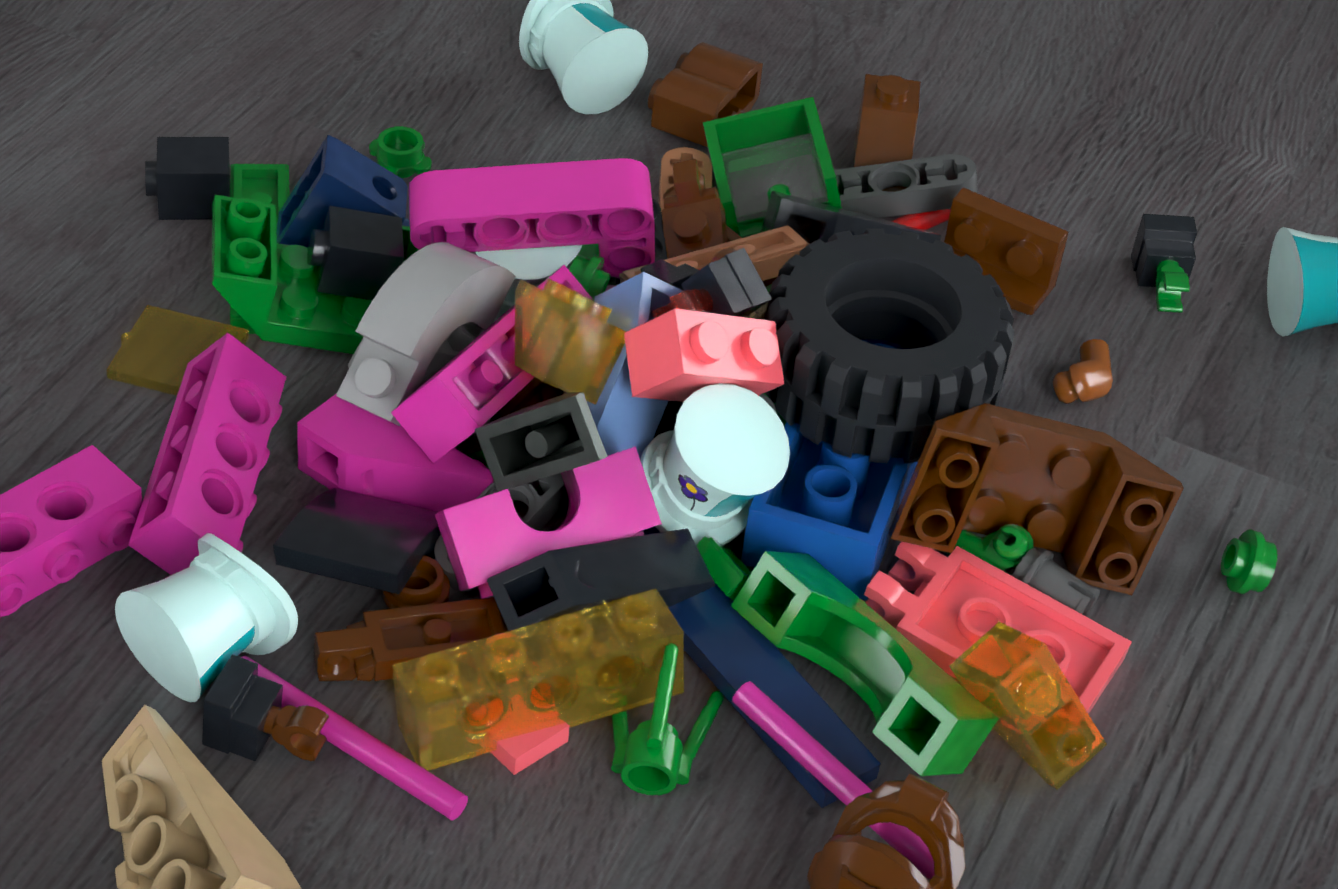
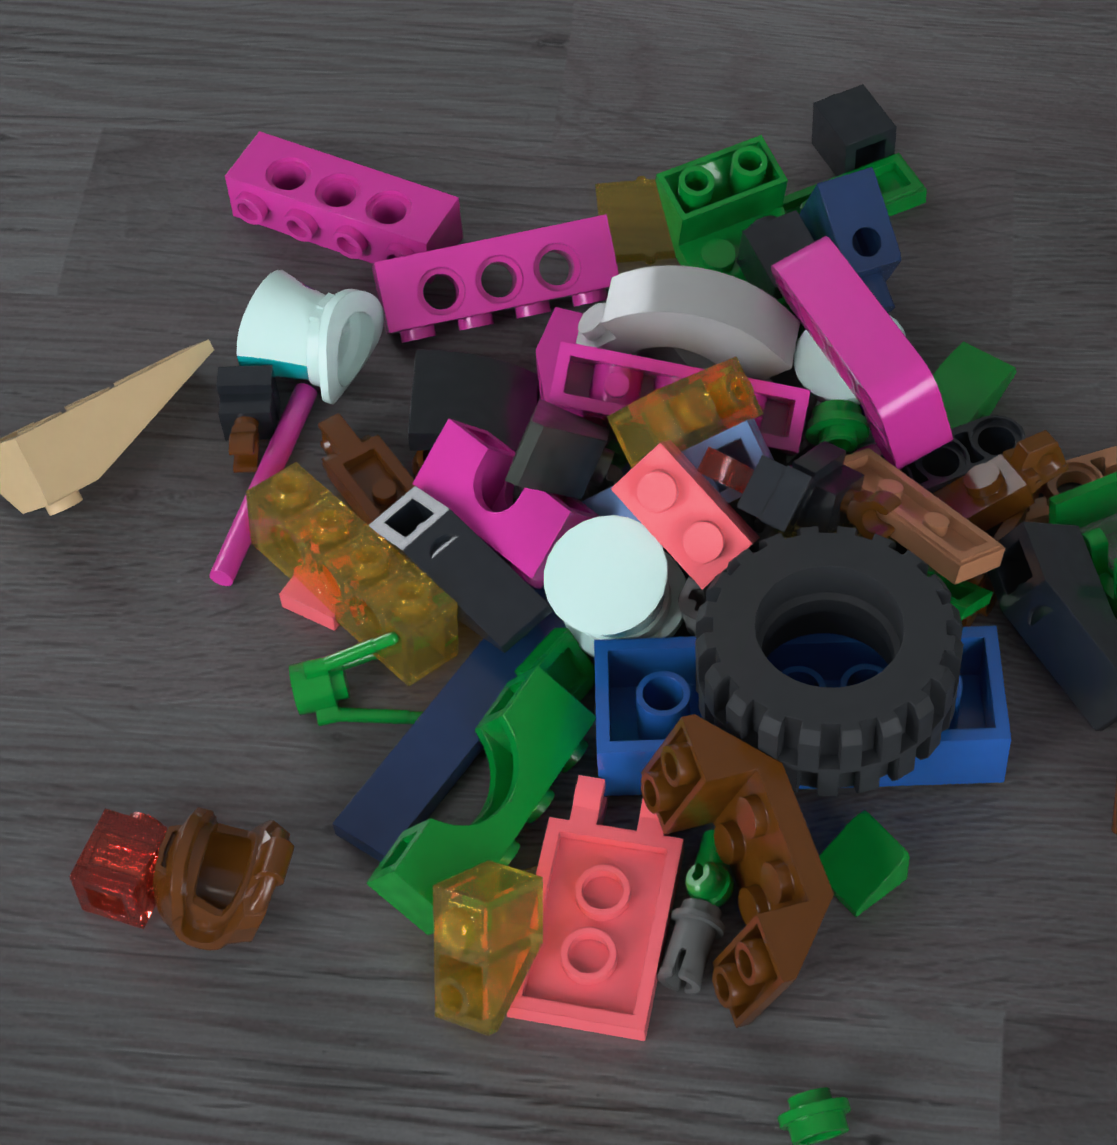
camera: 80 degrees right, 10 degrees up
(401, 151) = (1000, 256): green plate -> none
(826, 769) = (335, 829): dark pink bar -> none
(1089, 377) = (1038, 911): dark orange arm -> none

